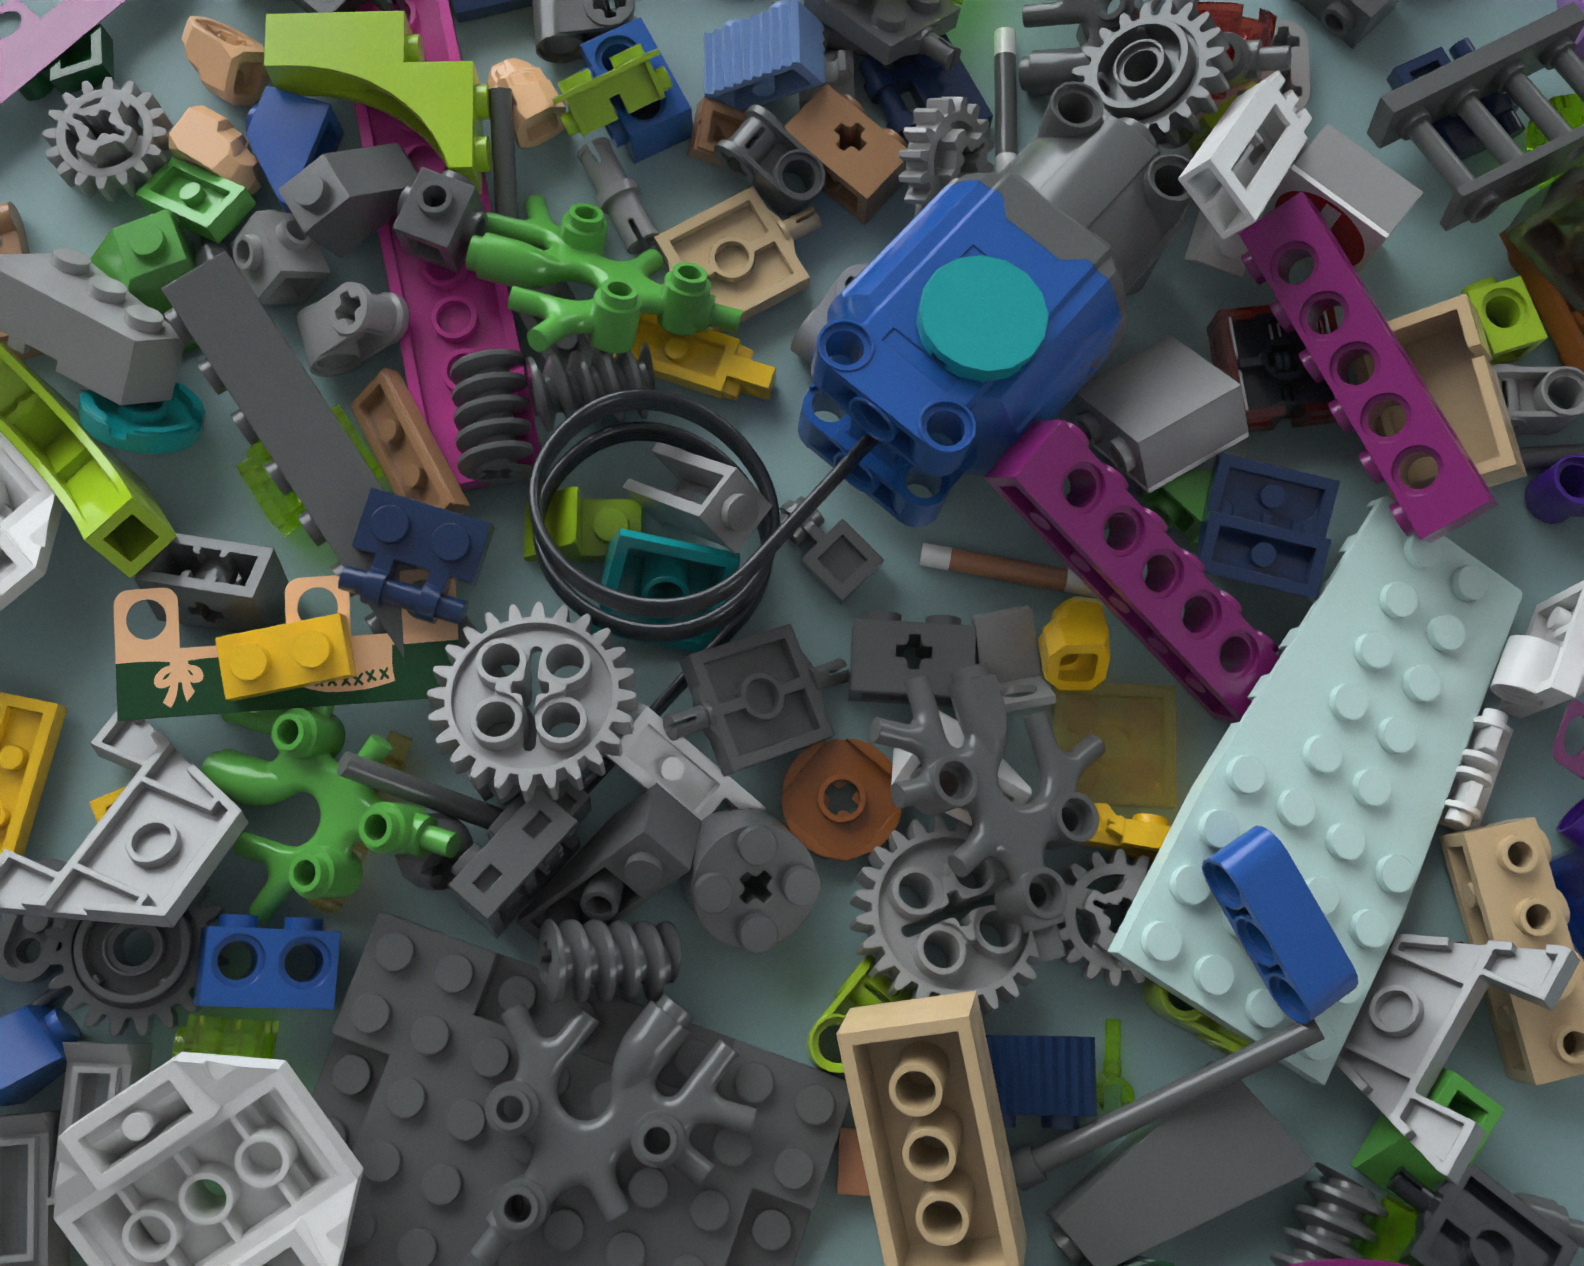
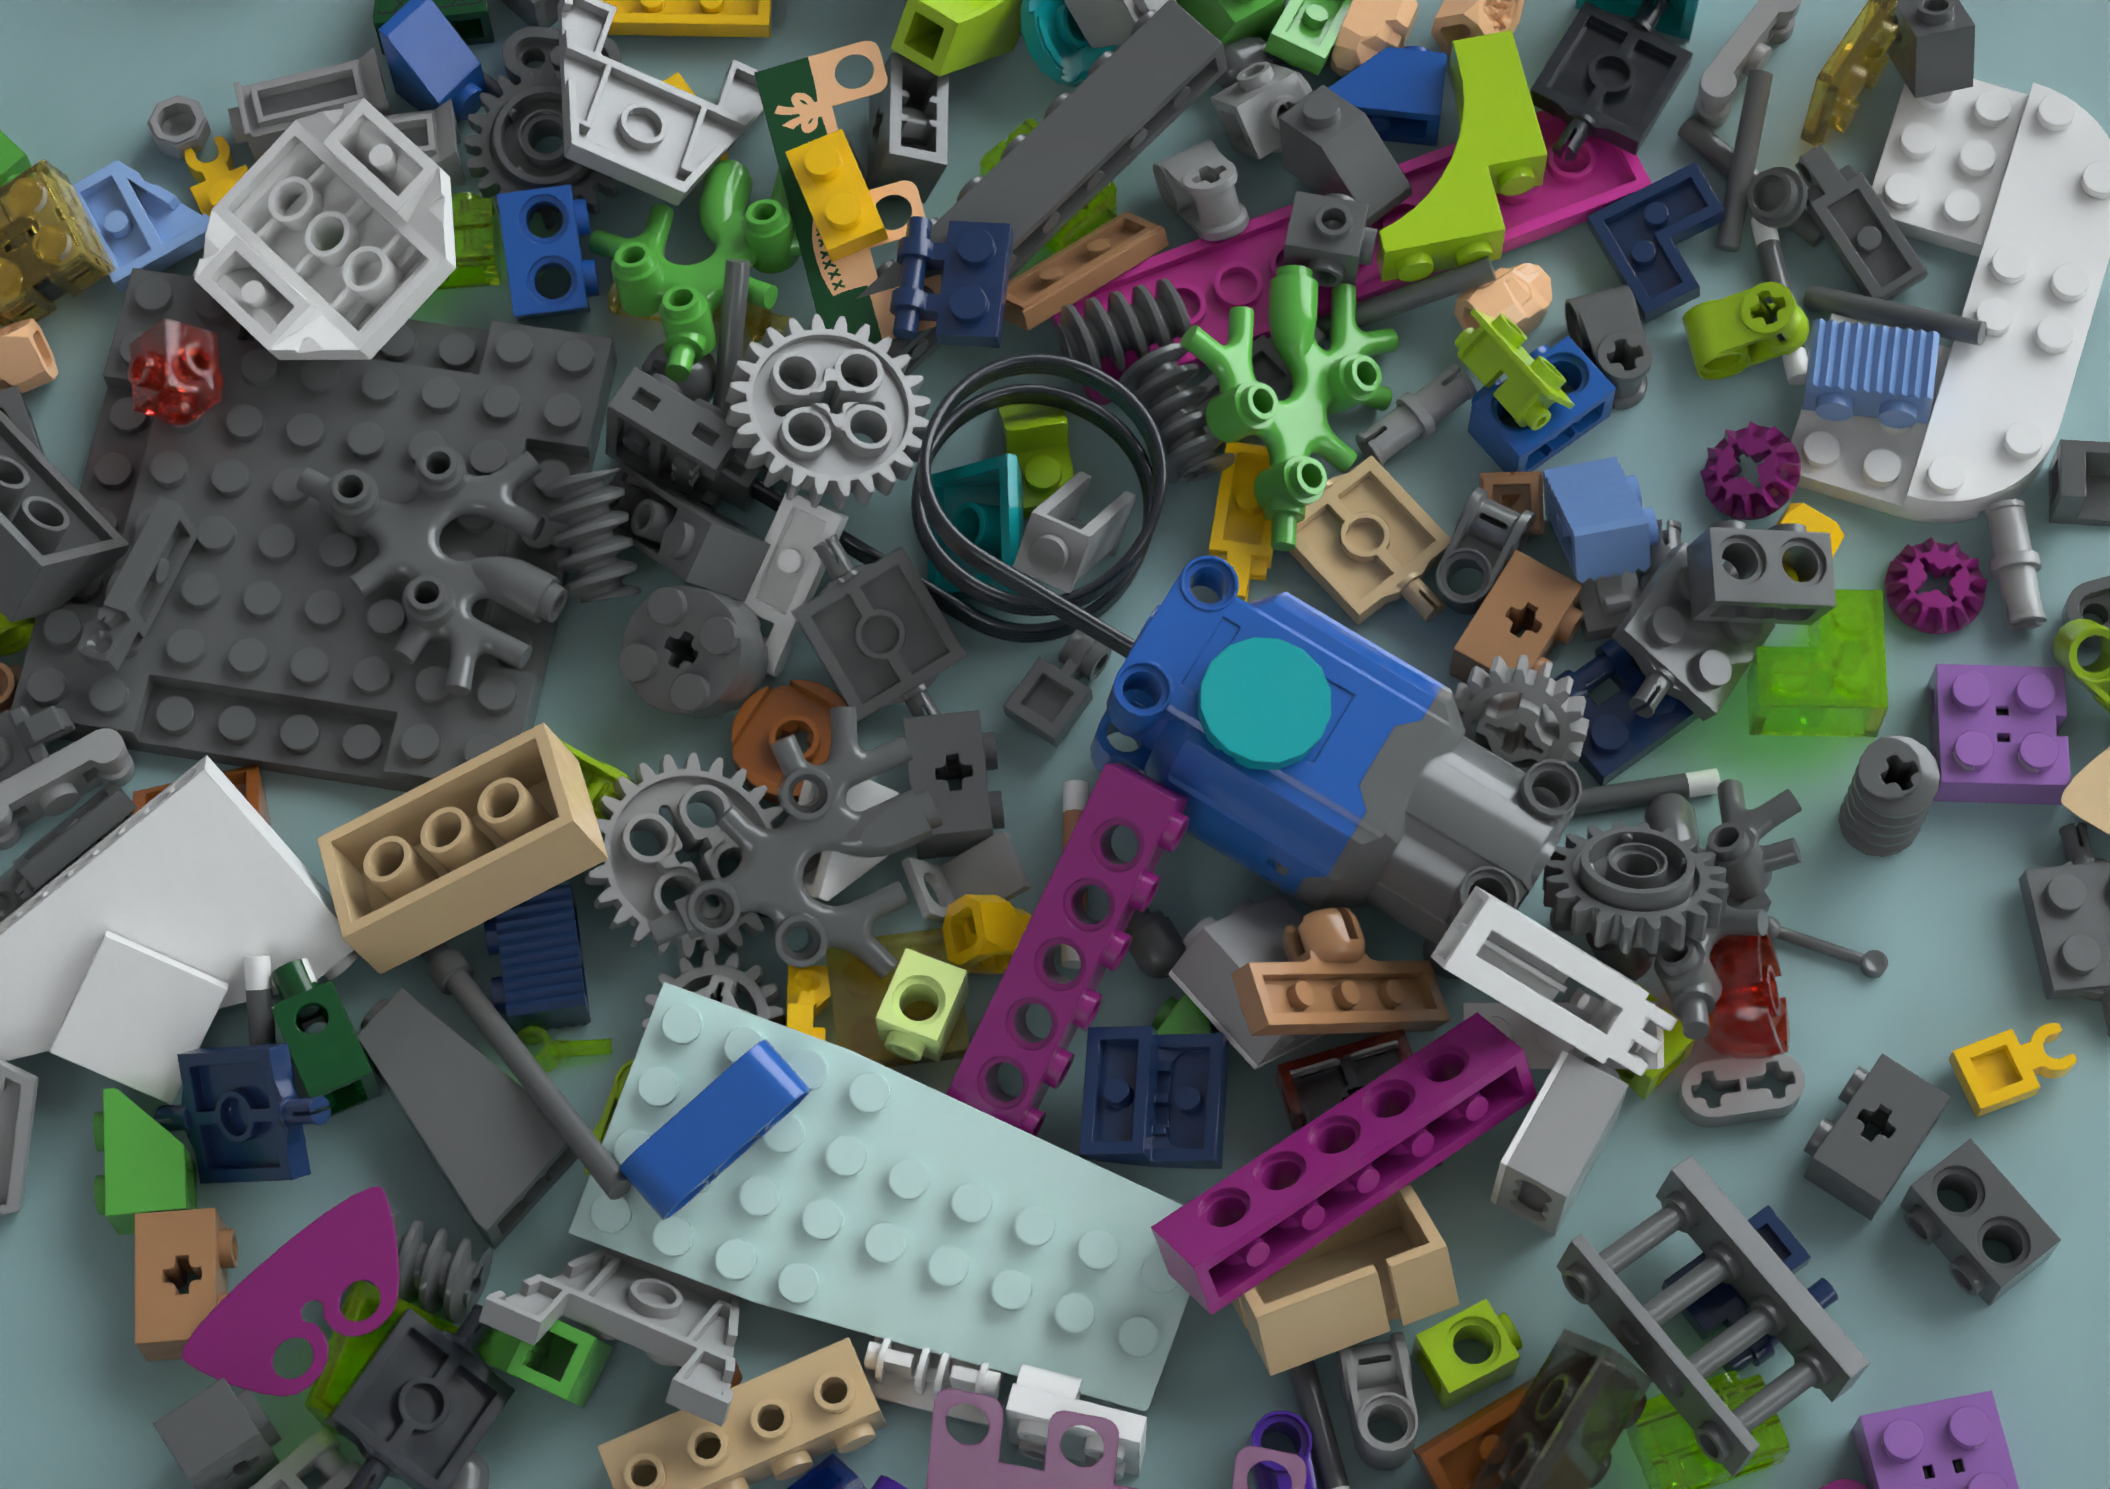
camera: 85 degrees right, 10 degrees down
(1121, 723) = (926, 980): none -> yellowish green brick
(1201, 335) = (1335, 985): none -> medium nougat plate

